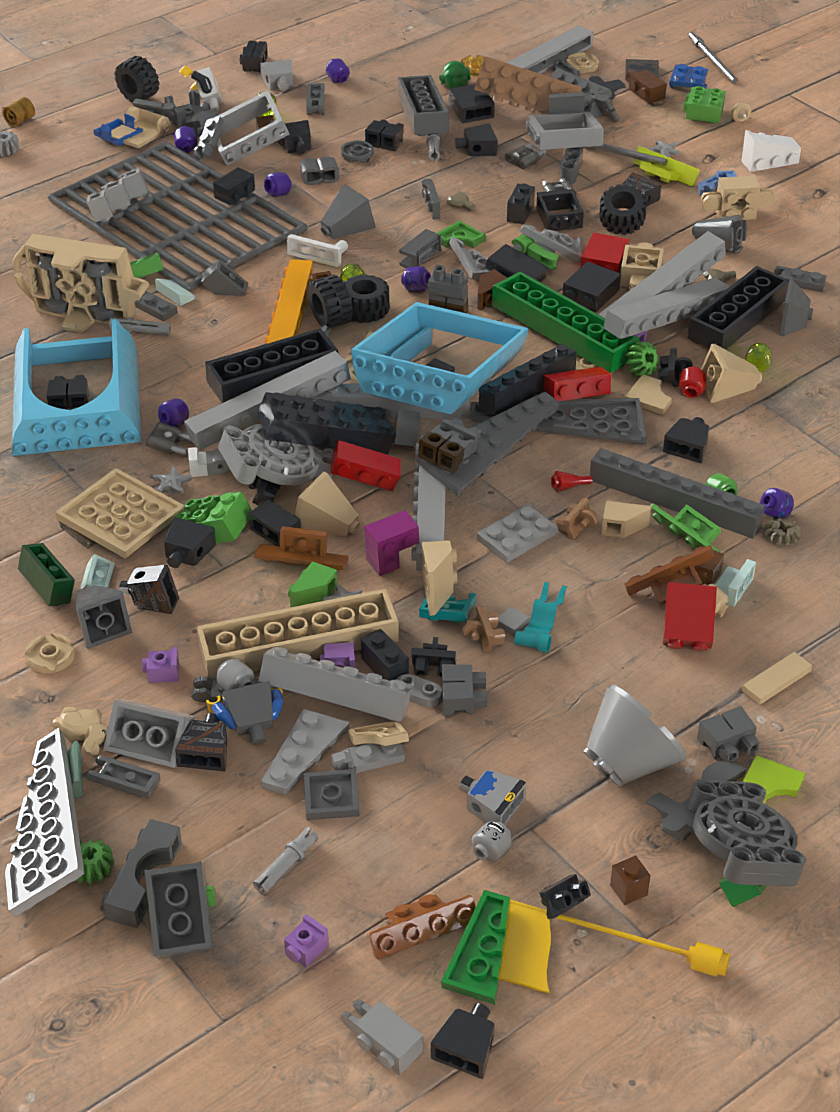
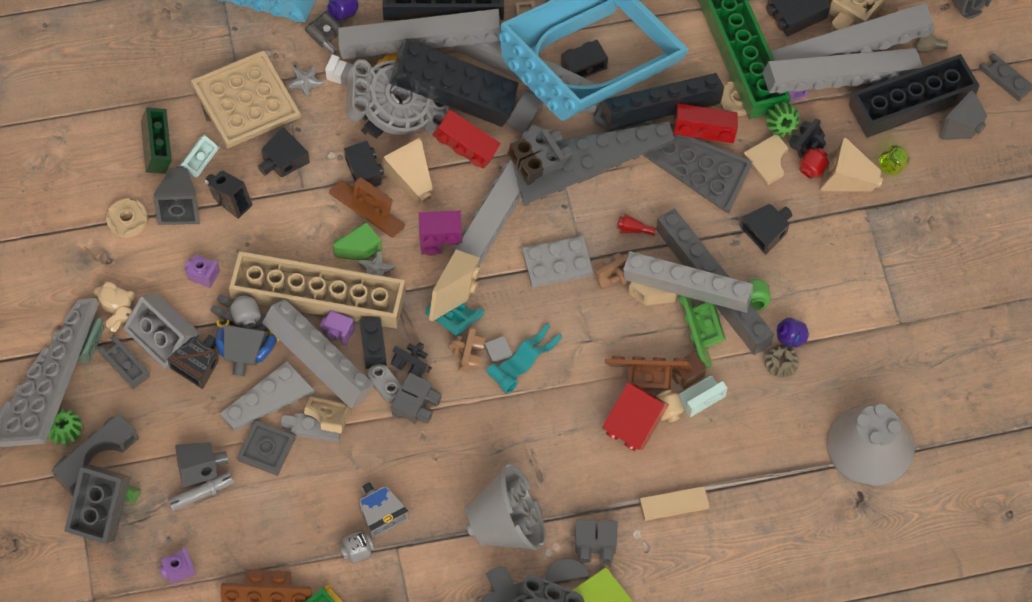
camera: 25 degrees right, 20 degrees up
(224, 512) = (320, 136): bright green slope -> none
(267, 831) = (198, 462): none -> dark grey torso
(660, 489) = (688, 281): none -> light grey brick

